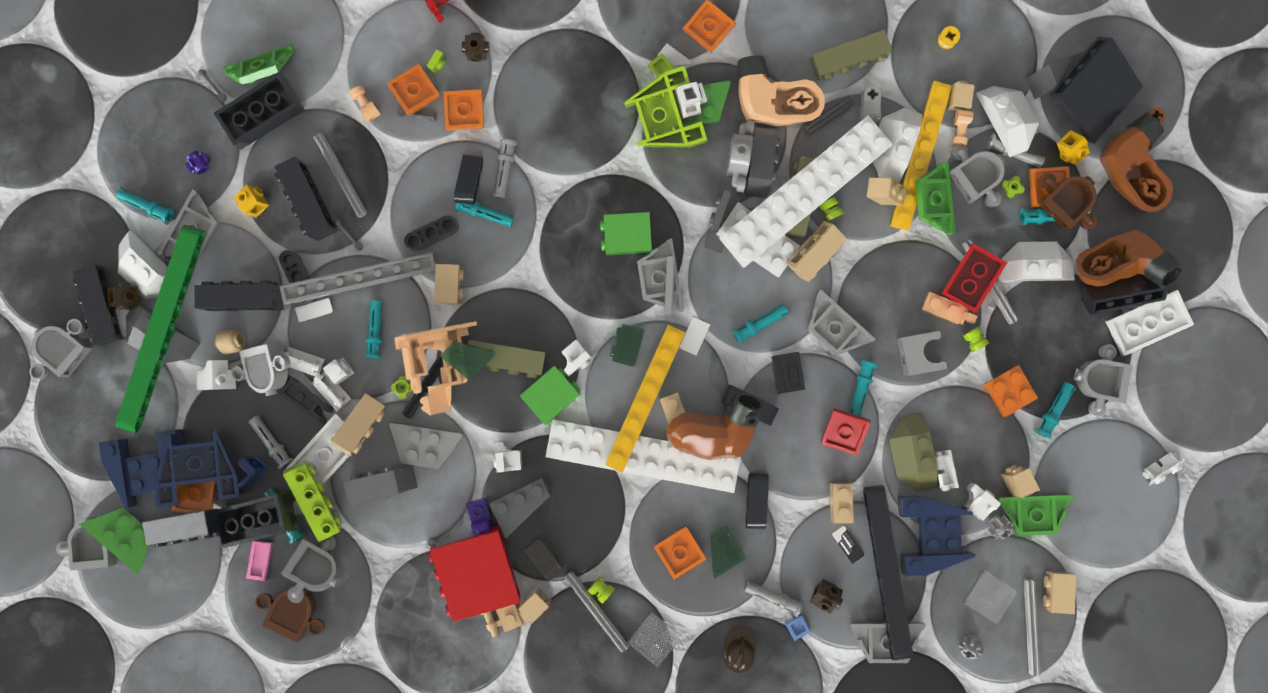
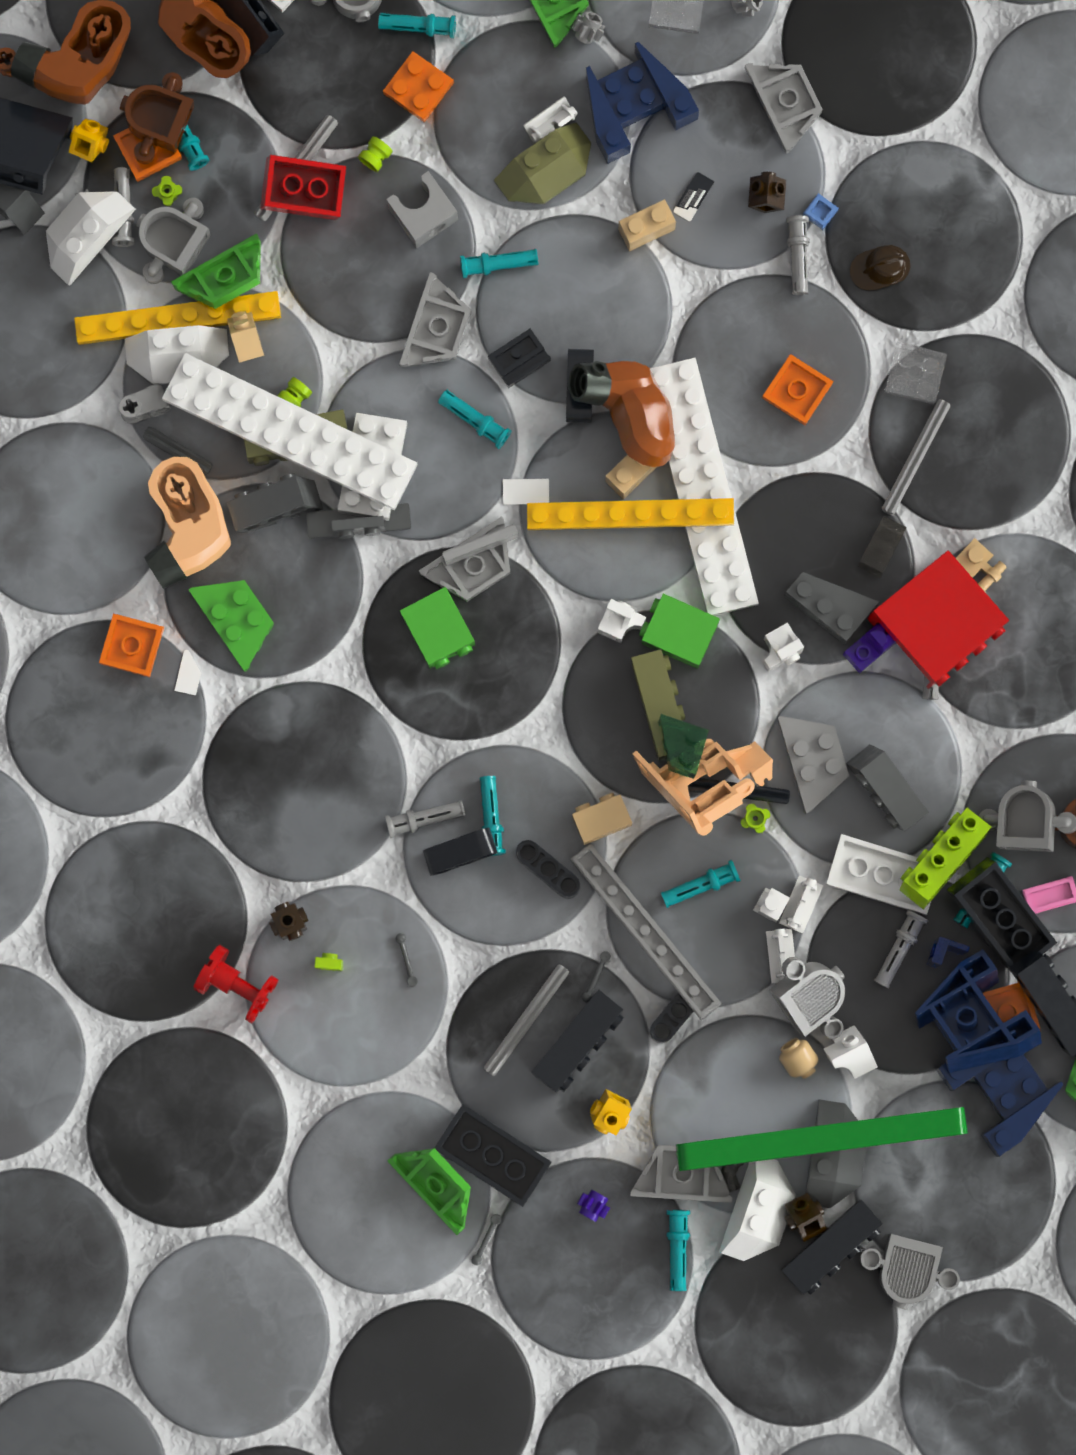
camera: 115 degrees left, 5 degrees down
(238, 297) = (737, 1066): black brick -> none
(304, 399) = (827, 931): black hinge -> none
(314, 310) = (711, 974): white sticker -> none
(358, 425) = (827, 845): tan brick -> none
(368, 108) = (426, 1021): light nougat leg -> none
(413, 90) = (377, 976): orange plate -> none
(463, 110) = (374, 901): orange plate -> none
(534, 605) = (943, 531): tan brick -> none
(601, 589) = (887, 463): lime wheel -> none
(627, 345) = (575, 565): clear green brick -> none
(660, 65) = (209, 682): lime plate -> none
(661, 116) = (271, 651): lime wedge -> none
(689, 99) = (237, 623): white brick -> none
(724, 551) = (771, 337): clear green wing -> none
(740, 155) = (279, 531): light grey piece -> none
(757, 501) = (692, 325): black beam -> none
(816, 251) = (355, 389): tan brick -> none
(845, 431) = (559, 258): plate -> none
(851, 55) = (91, 456): olive brick -> none
(887, 572) = (704, 134): black beam -> none
(945, 40) = (18, 352): yellow wheel -> none
(947, 309) = (354, 204): light nougat hinge -> none
(961, 96) = (83, 300): tan brick -> none
(961, 120) = (112, 287): light nougat leg -> none
(980, 501) = (569, 63): white brick -> none
(1019, 481) = (523, 29): tan brick -> none
(1037, 263) = (247, 121): white wedge -> none

